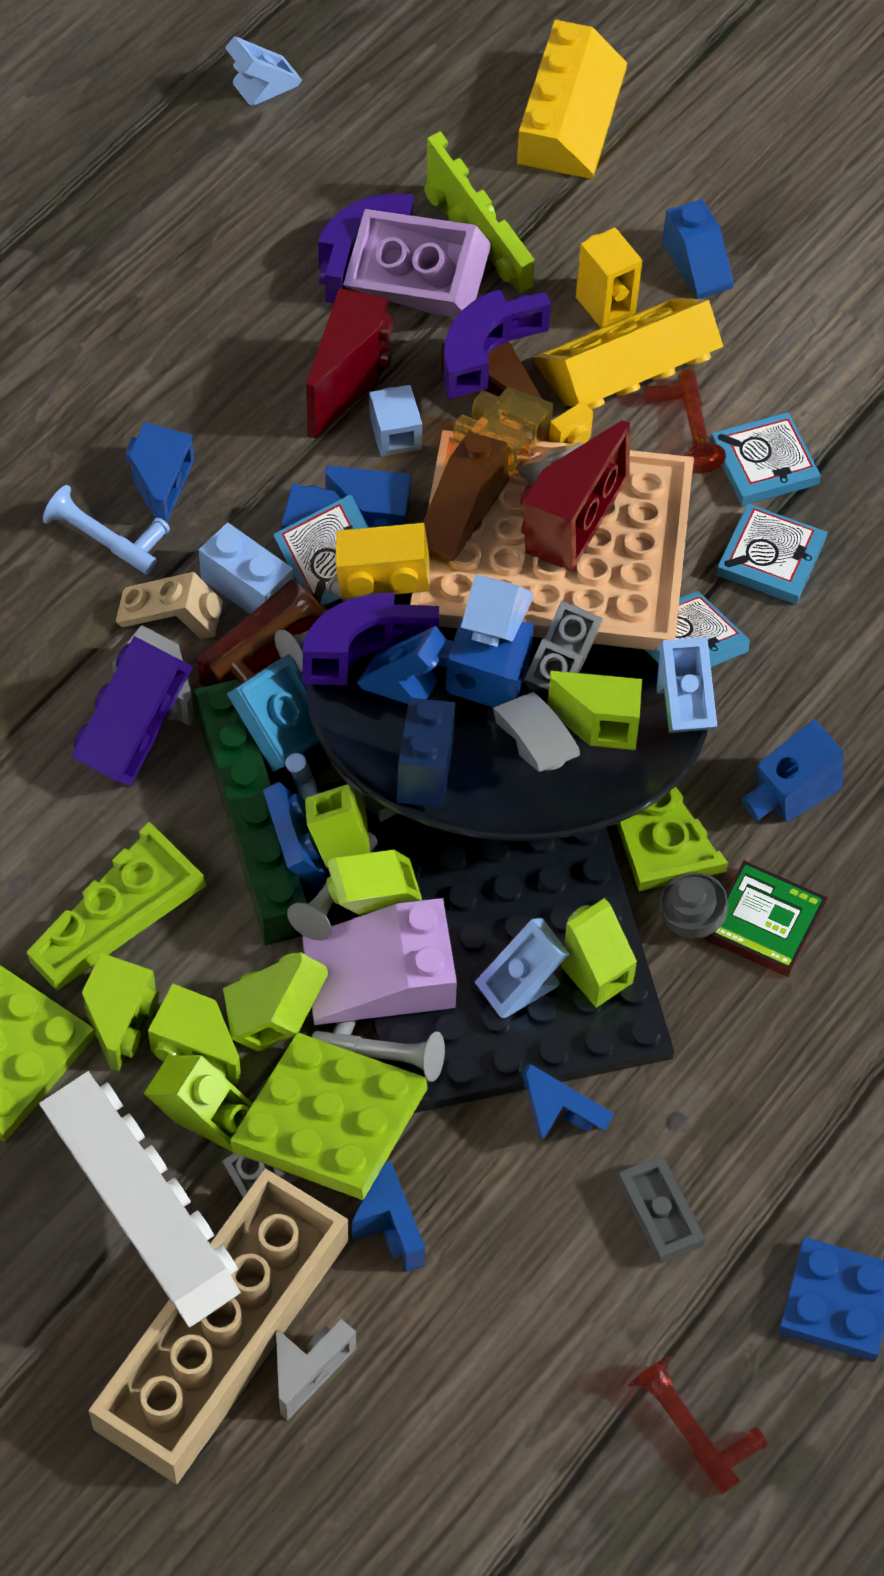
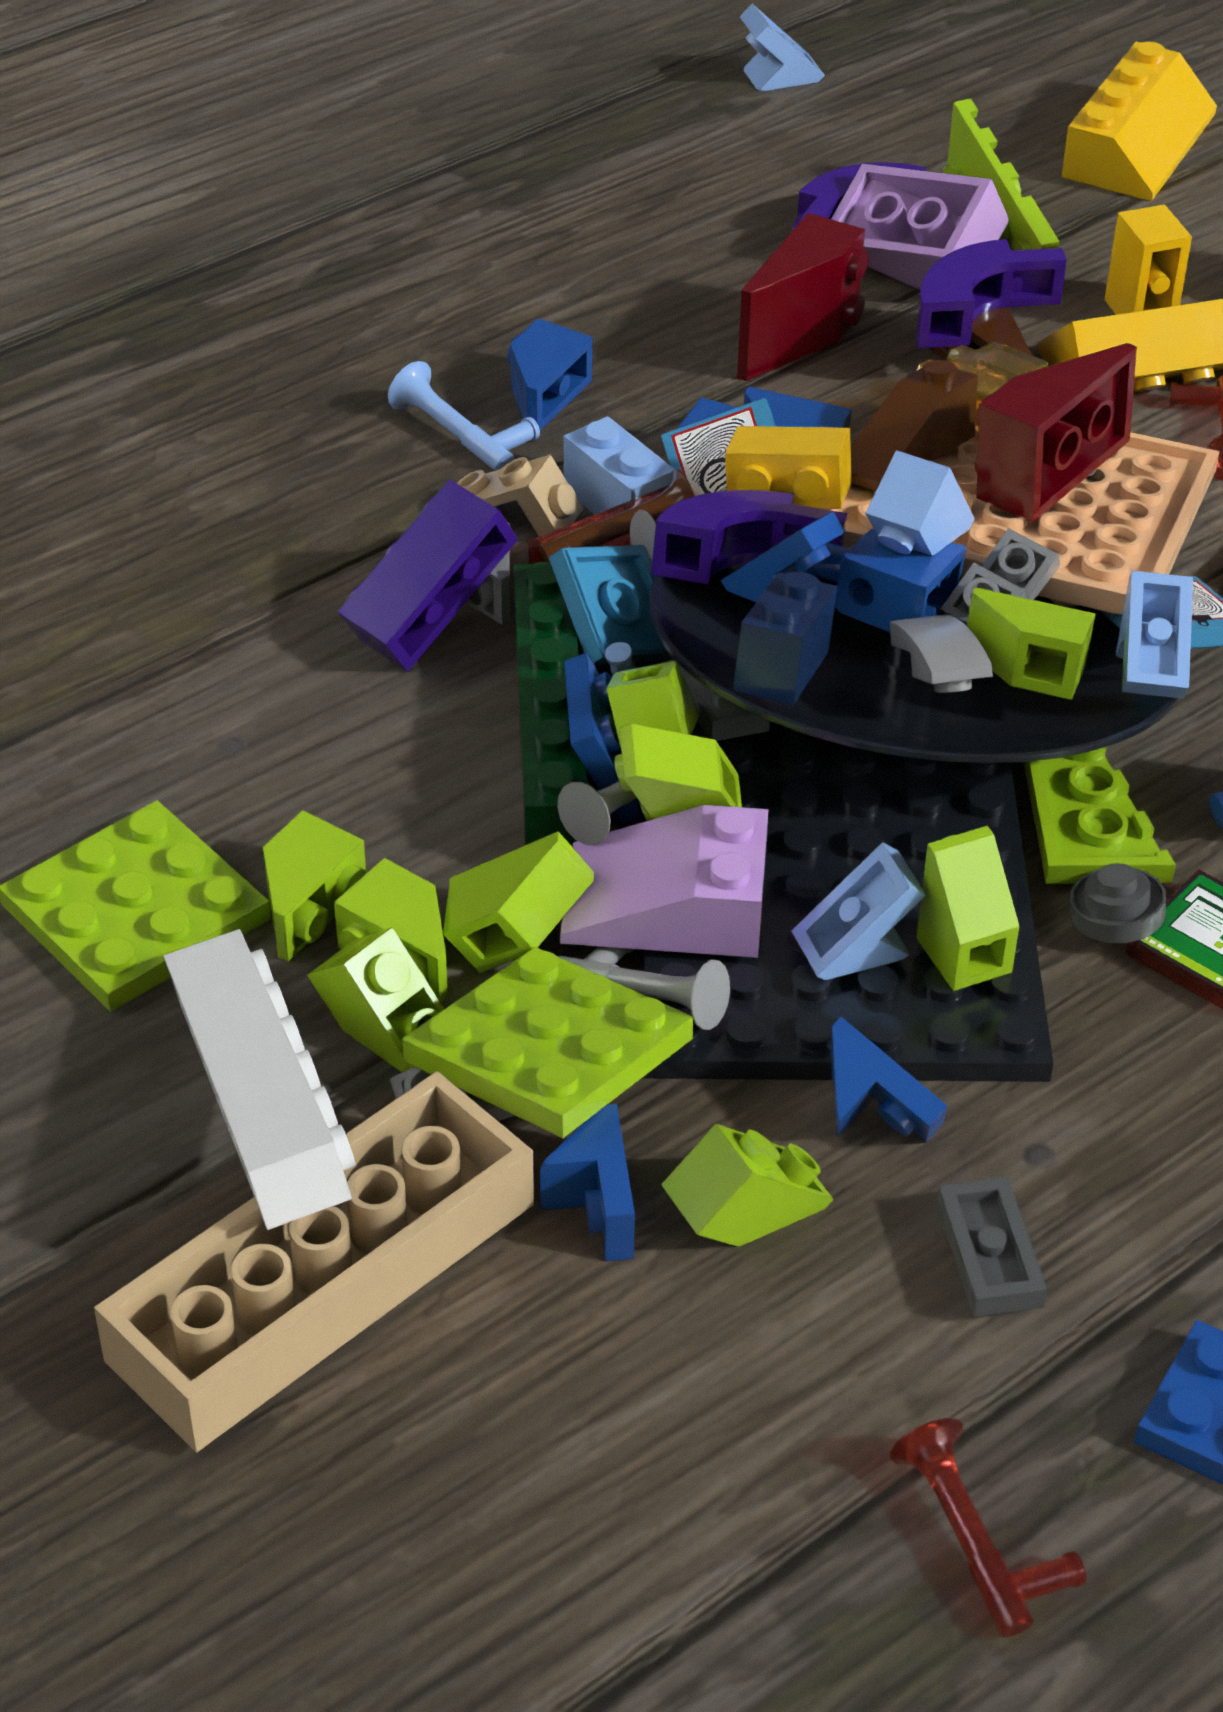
camera: 15 degrees right, 15 degrees down
(128, 899) = (360, 779): lime wing -> none
(303, 1374) = (423, 1344): light grey slope -> none
(395, 420) = (848, 368): light blue brick -> none
(490, 1201) = (745, 1186): none -> lime slope

